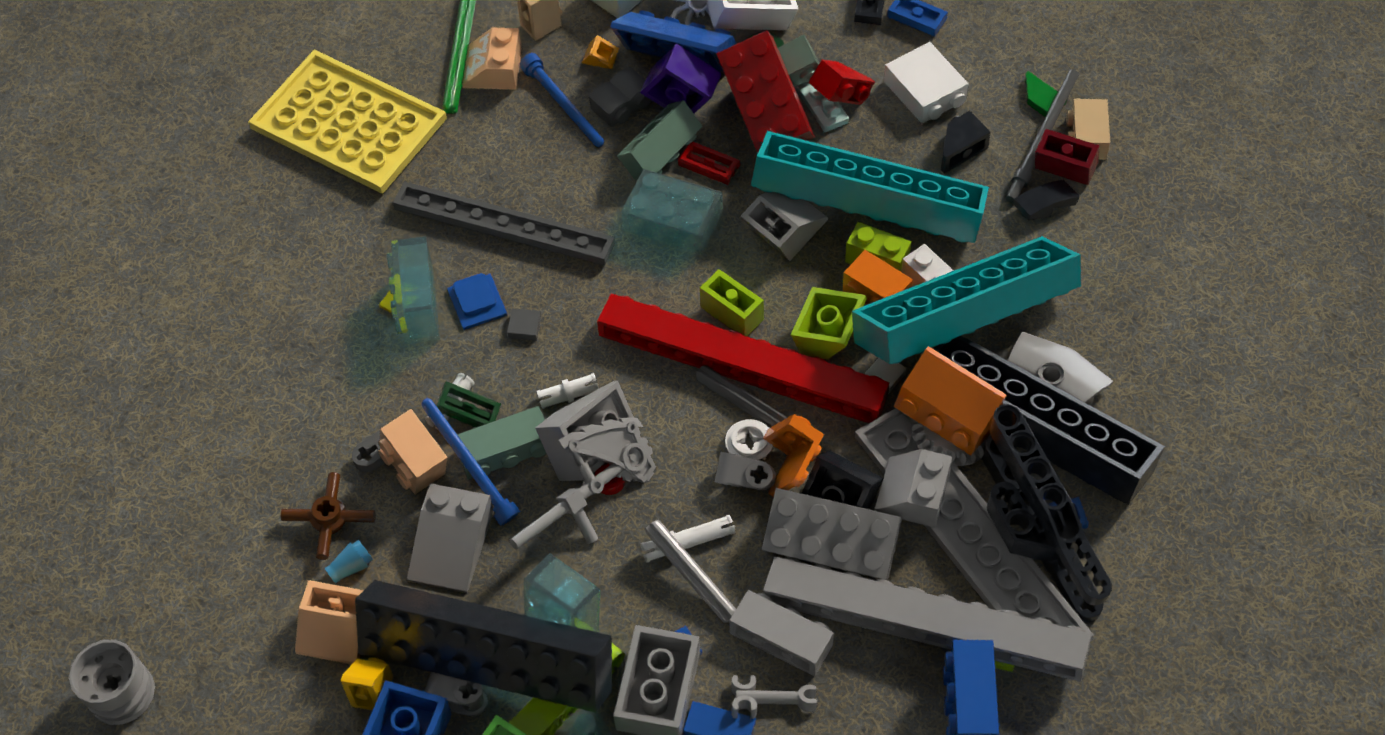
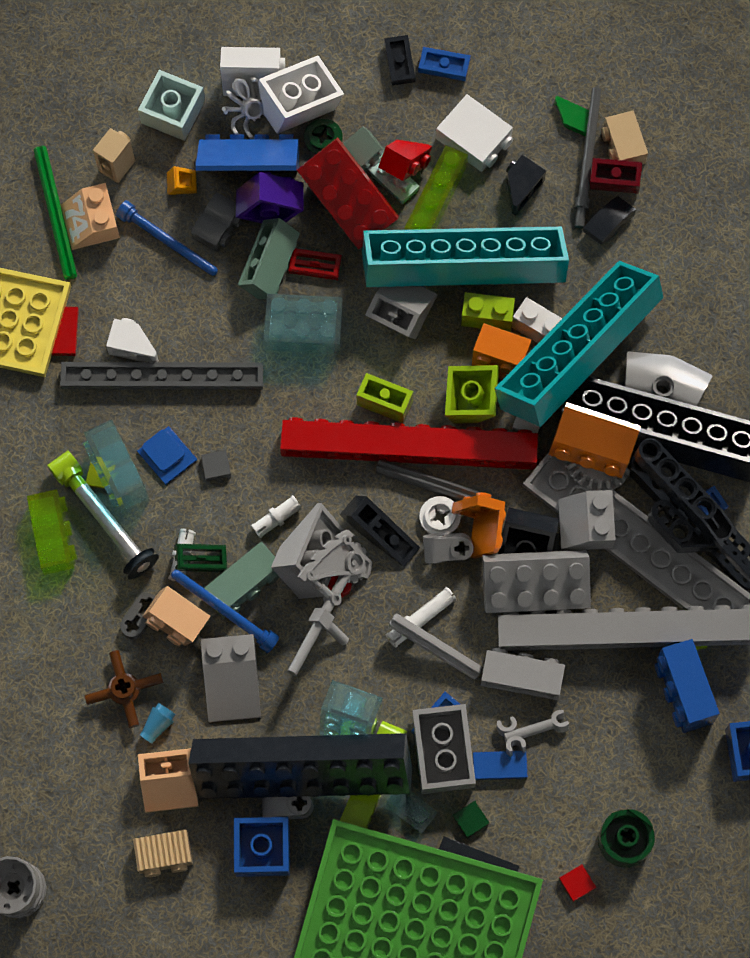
camera: 20 degrees left, 15 degrees up
(295, 700) = (162, 853): none -> tan brick
(321, 338) = (51, 531): none -> clear neon green brick
(365, 681) = (216, 820): yellow slope -> none
(399, 390) = (69, 473): none -> piece
(423, 161) = (67, 333): none -> red tile
(481, 181) = (130, 342): none -> white slope
(676, 435) = (379, 529): none -> black slope
(870, 120) = (438, 190): none -> clear neon green brick

